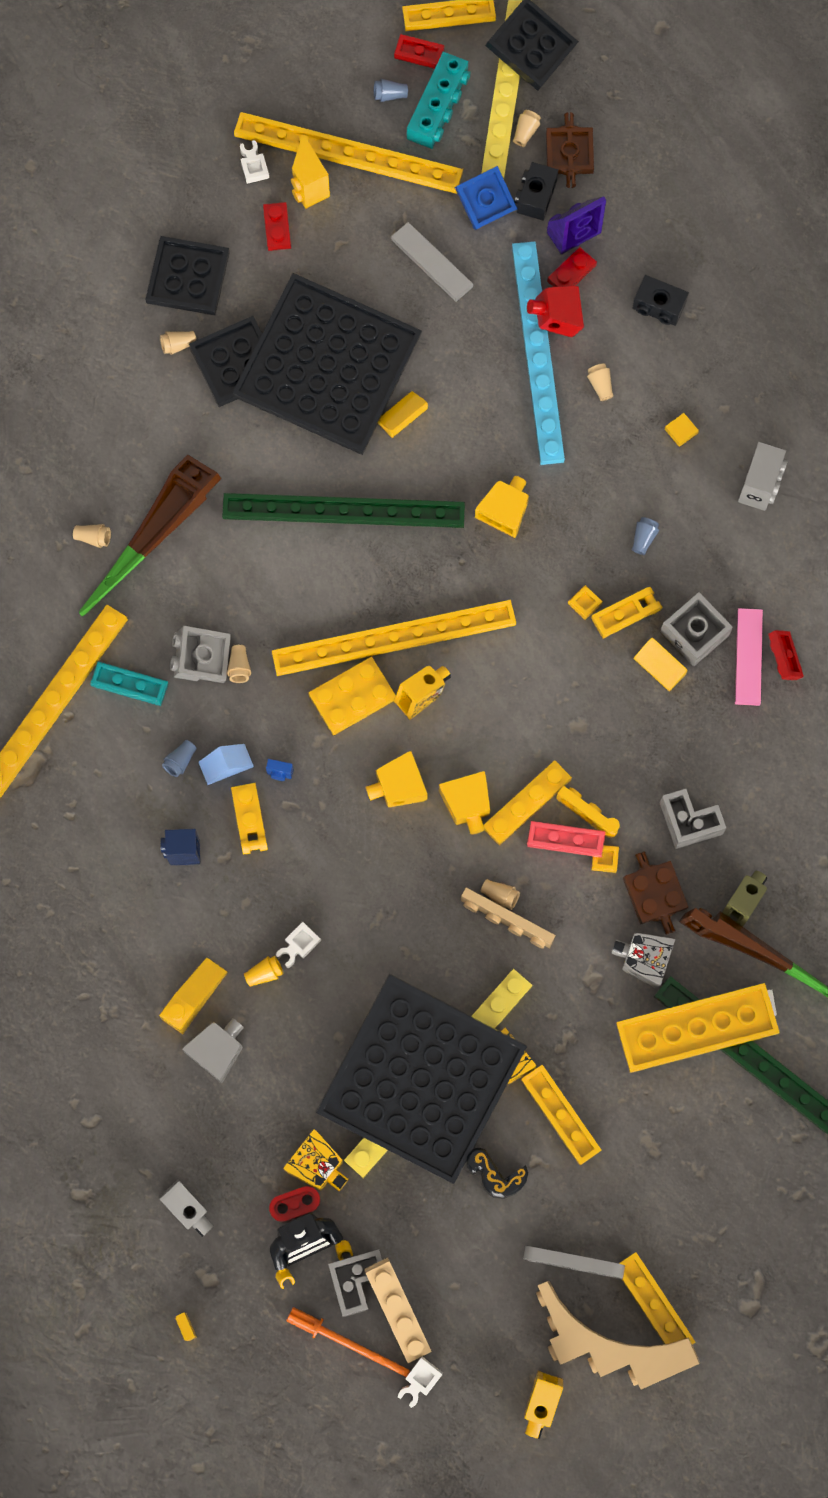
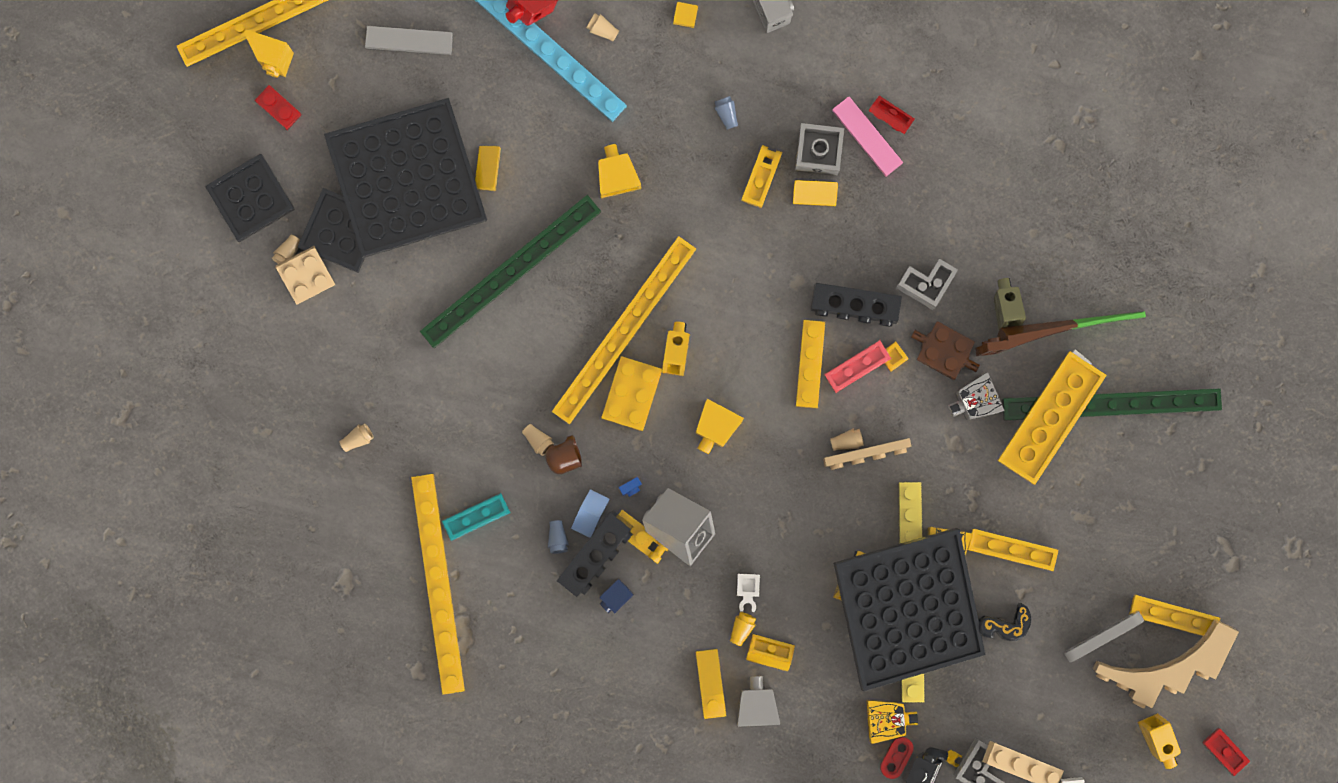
camera: 45 degrees left, 10 degrees up
(159, 798) = (570, 577): none -> black brick
(173, 371) = (305, 275): none -> tan plate
(177, 500) = (392, 362): reddish brown plate -> none
(200, 654) = (507, 456): light grey plate -> none
(244, 693) = (564, 456): none -> reddish brown helmet
(253, 164) = (221, 77): white plate -> none
(269, 1015) = (770, 652): none -> yellow slope
(290, 837) = (679, 525): none -> light grey slope
(467, 800) = (772, 398): yellow torso -> none
(585, 602) = (727, 193): yellow tile -> none
(589, 812) = (837, 336): yellow plate -> none
(593, 752) = (890, 304): none -> black brick
(594, 1470) = (1226, 751): none -> red plate

